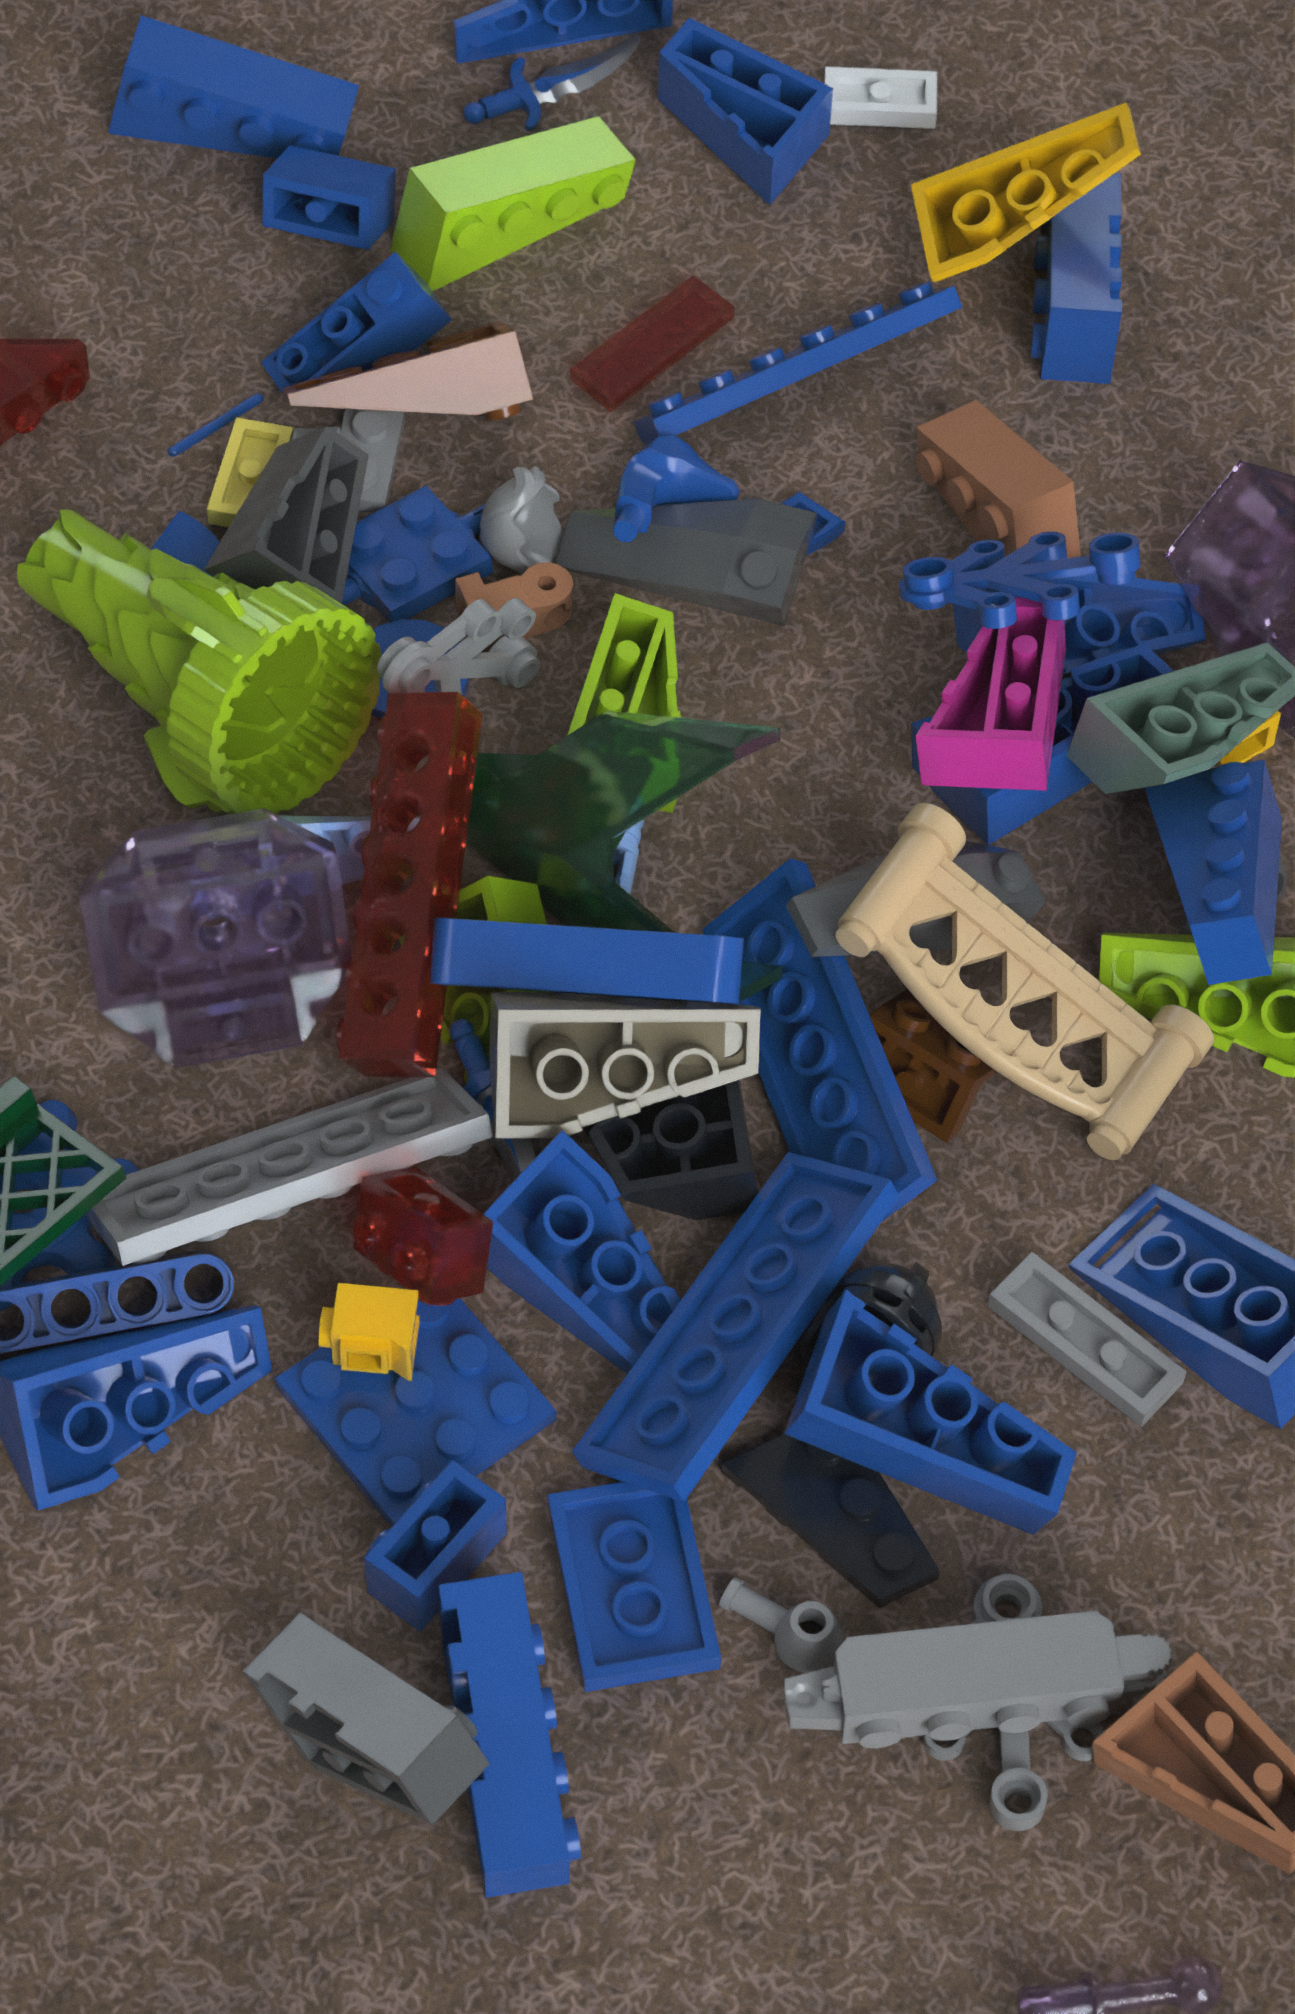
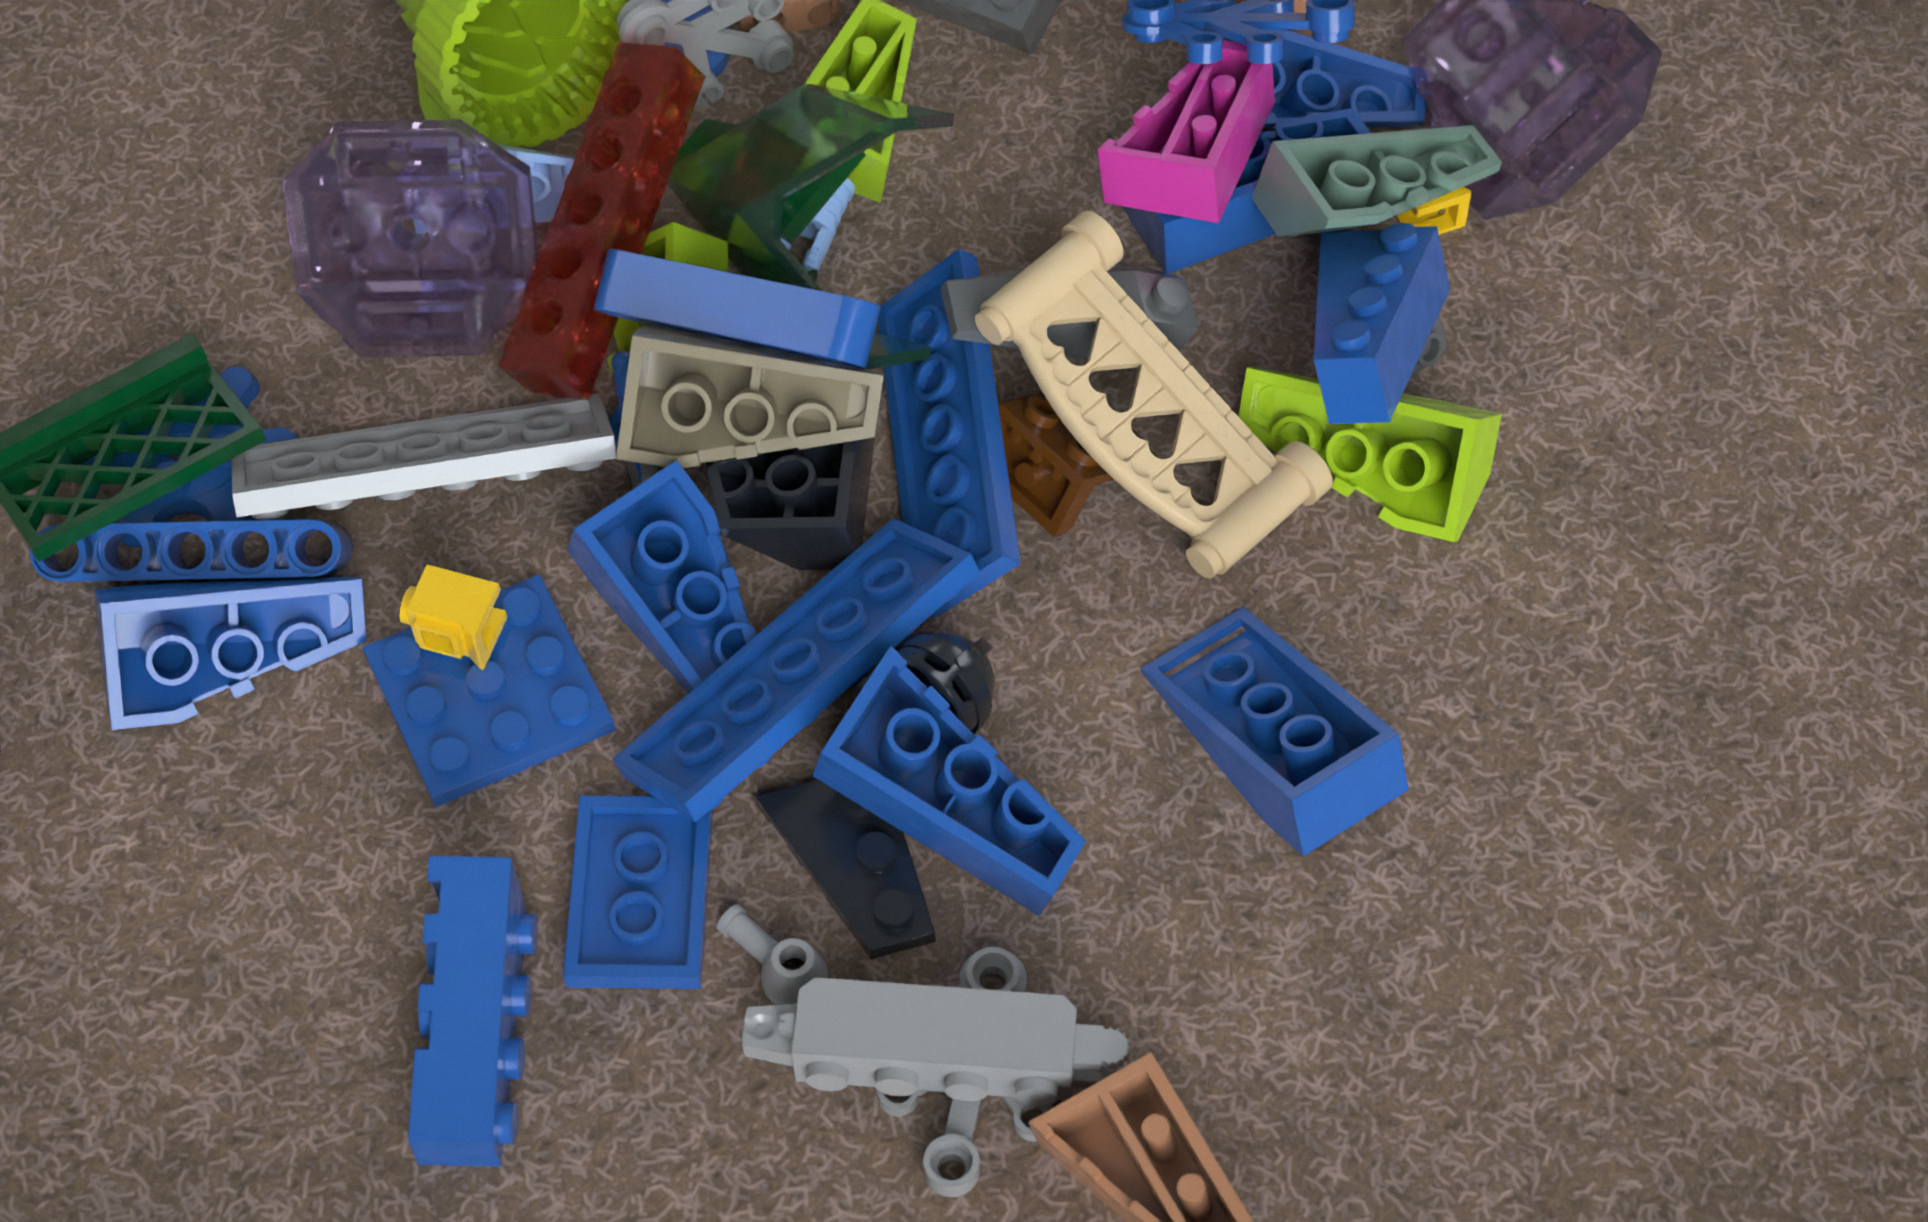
camera: 15 degrees right, 0 degrees up
(365, 1722) = (331, 972): wedge -> none
(422, 1235) = (523, 537): clear red brick -> none
(434, 1543) = (465, 813): blue brick -> none
(1086, 1339) = (1137, 740): light grey plate -> none

